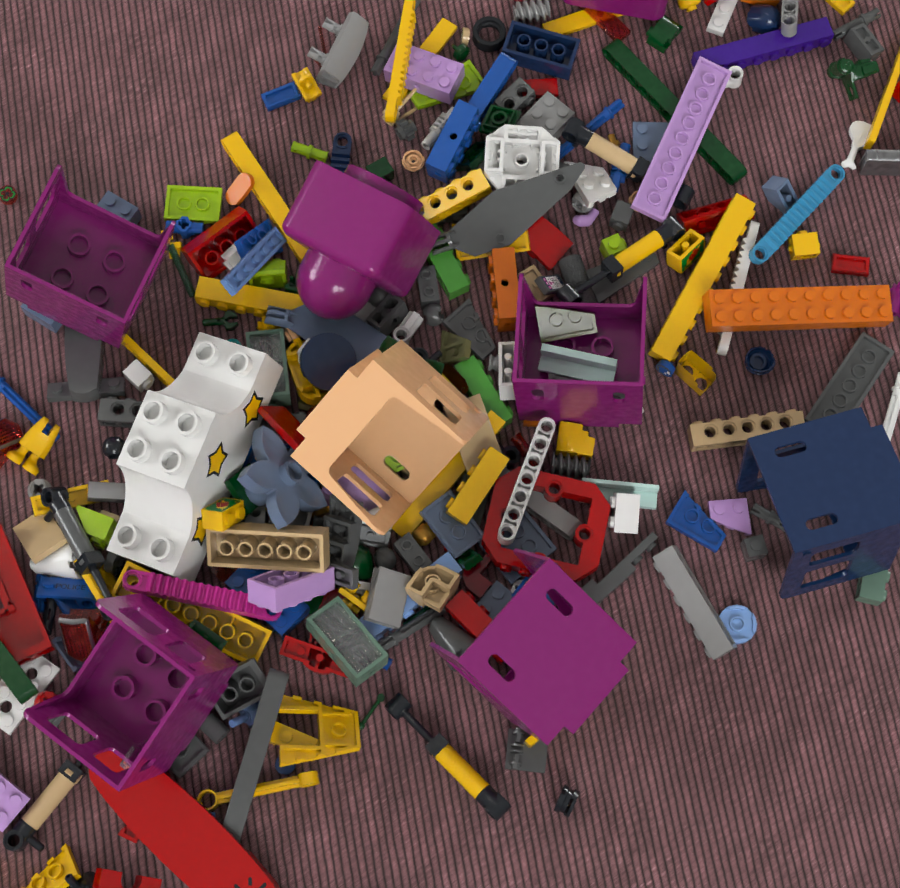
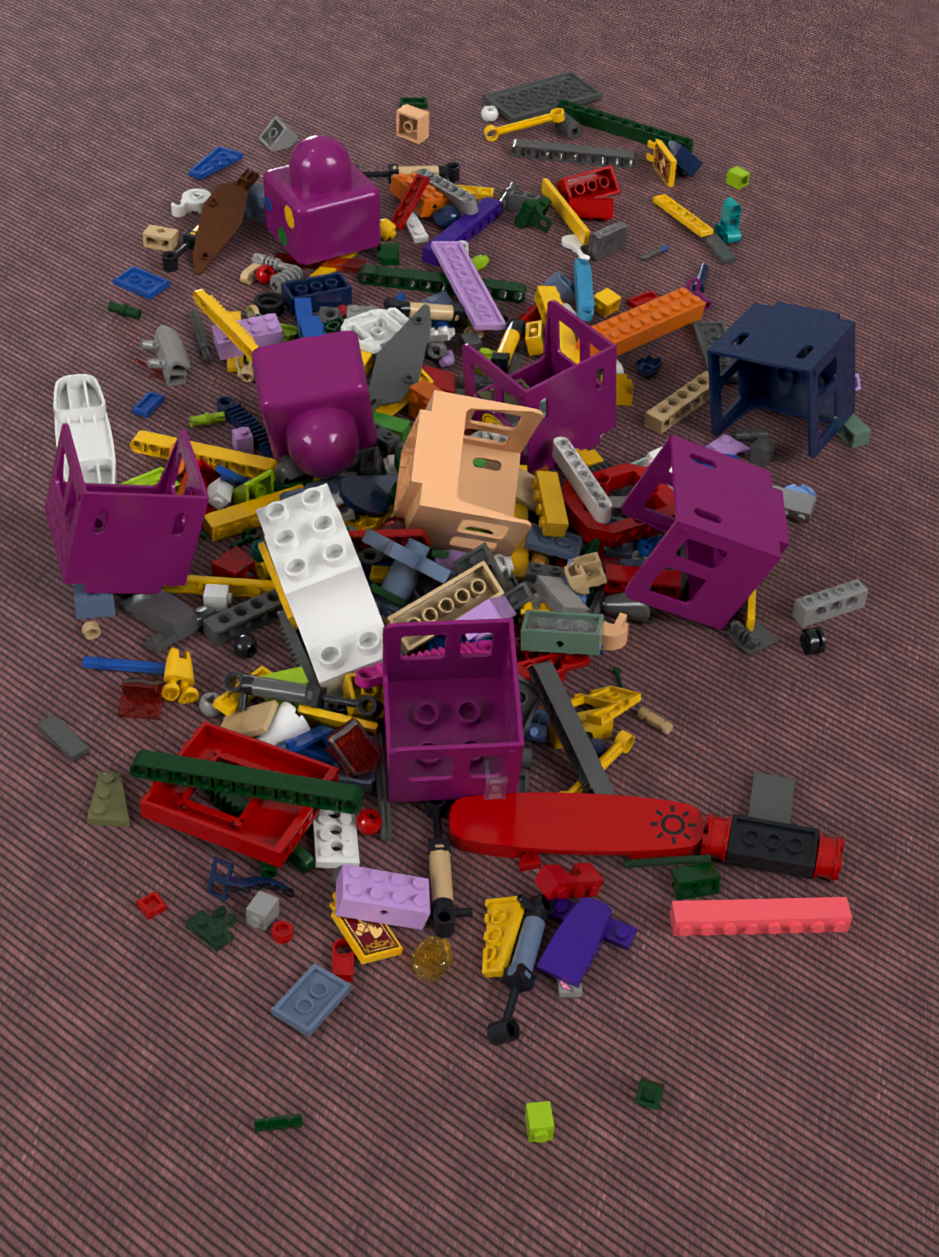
camera: 40 degrees left, 30 degrees down
(19, 340) = (90, 635): none -> tan axle
(106, 492) = (274, 664): light grey brick -> none
(177, 349) = (234, 565): none -> red torso
(188, 111) = (83, 407): none -> white piece
(223, 514) = (390, 603): yellow brick -> none
(253, 261) = (243, 472): medium blue tile -> none
(306, 85) = (162, 383): yellow hips -> none
(357, 775) = (655, 720): none -> tan axle
(407, 661) = (615, 634): none -> light nougat brick
(452, 761) = (767, 664): piece -> none
(627, 771) = (829, 603): none -> light grey brick
(734, 104) = (480, 262): none -> lime plant

